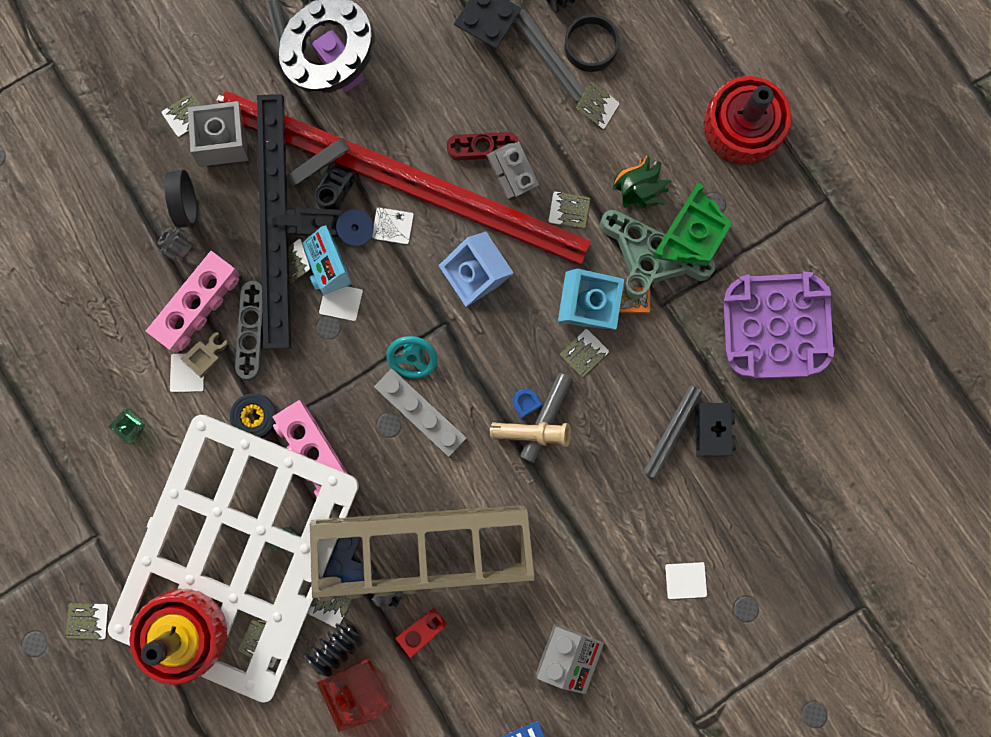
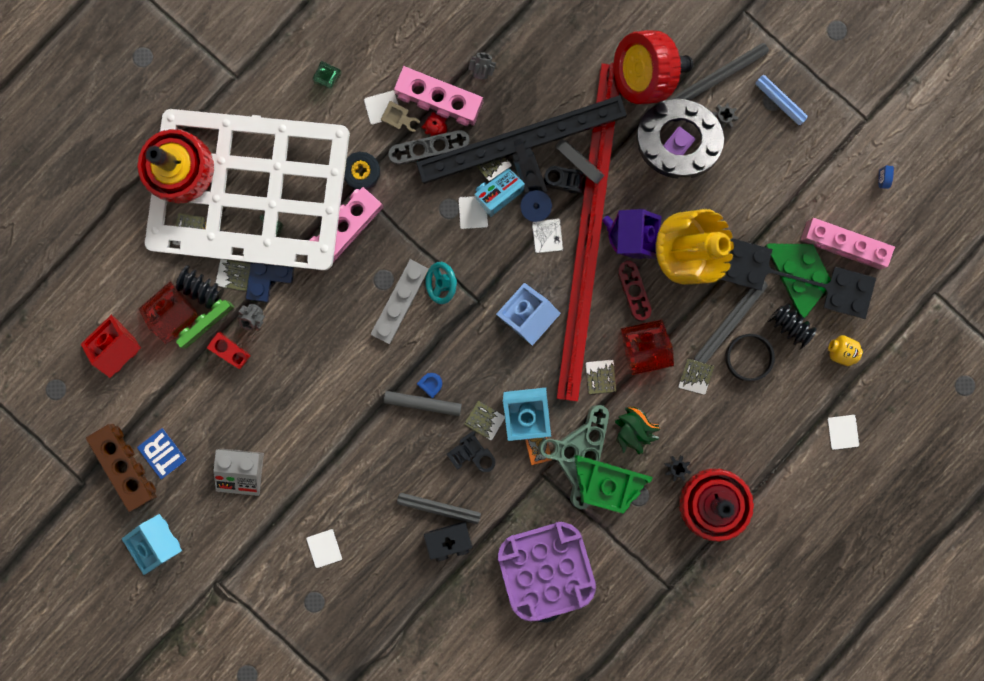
camera: 75 degrees right, 5 degrees up
(86, 621) = (170, 91): sticker -> none
(178, 113) = (594, 38): sticker -> none
(180, 198) = (518, 60): black tyre -> none
(217, 134) = (581, 72): light grey slope -> none
(231, 319) = (439, 128): none -> red animal
(233, 56) = (648, 66): none -> red wheel
(379, 653) = (204, 323): none -> bright green tile
(418, 125) = (634, 233): none -> dark purple piece
(421, 522) = (309, 326): dark tan window -> none
(453, 60) = (694, 247): none -> yellow piece
(517, 171) = (616, 321): light grey hips -> none
(541, 433) = (406, 403): tan pin -> none
(552, 146) = (647, 347): none -> clear red slope
(614, 378) = (468, 450): none -> black piece
(700, 146) = (679, 474): none -> black gear

